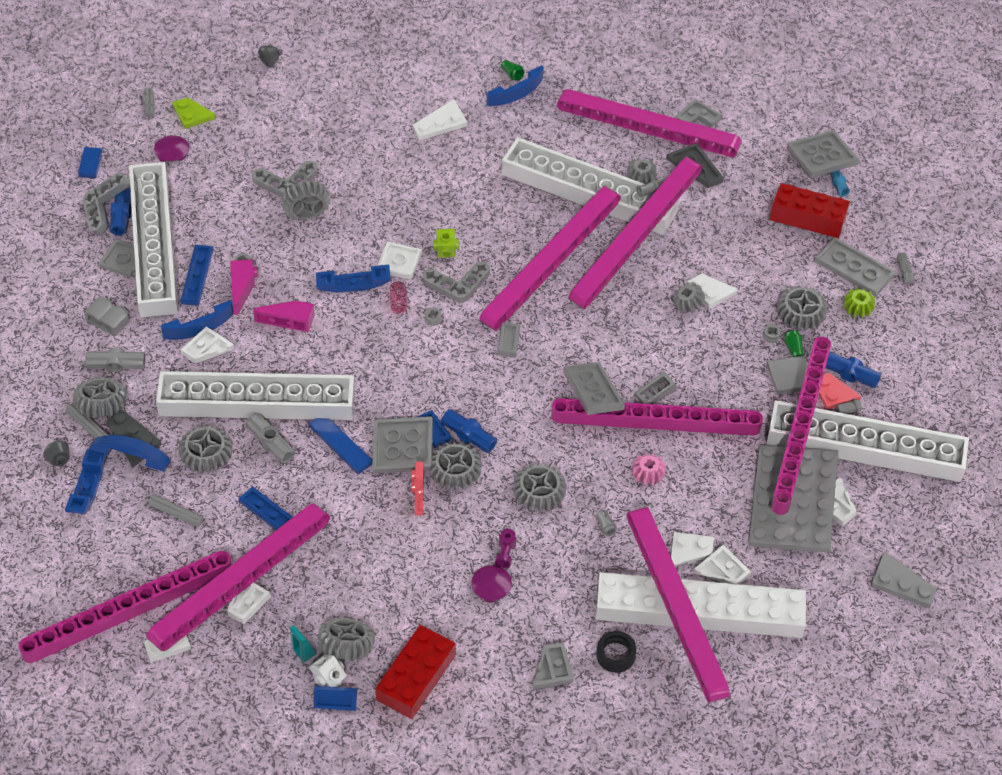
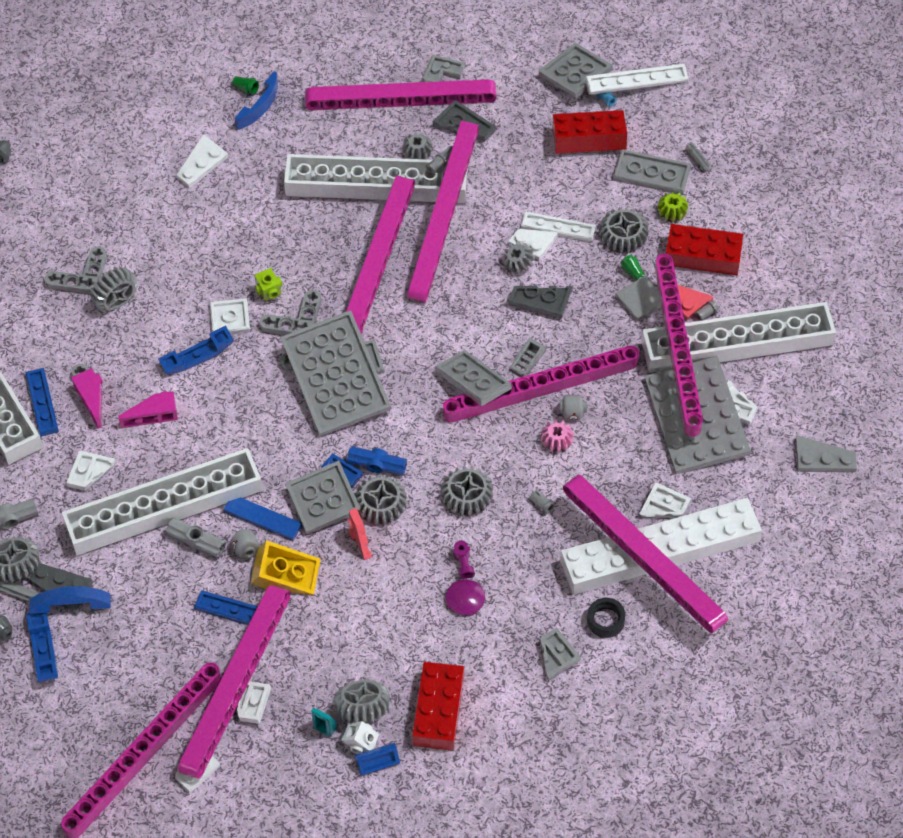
camera: 20 degrees left, 5 degrees up
(174, 330) = (52, 465): blue slope -> none
(175, 510) = (140, 641): light grey axle -> none
(201, 444) = (125, 574): light grey gear -> none
(311, 460) = (245, 543): none -> light grey head
(337, 495) = (285, 569): none -> yellow slope
(402, 297) = (243, 356): clear pink beam -> none
(467, 340) = (335, 373): none -> light grey plate
(676, 448) = (573, 406): none -> light grey head
(690, 548) = (627, 495): white wing -> none
(696, 345) = (548, 301): none -> dark grey wing
(745, 286) = (563, 227): none -> white tile
(772, 329) = (605, 260): light grey bush -> none
(853, 370) = (695, 274): blue piece -> none
(873, 348) = (705, 249): none -> red brick
(877, 179) = (636, 79): none -> white tile

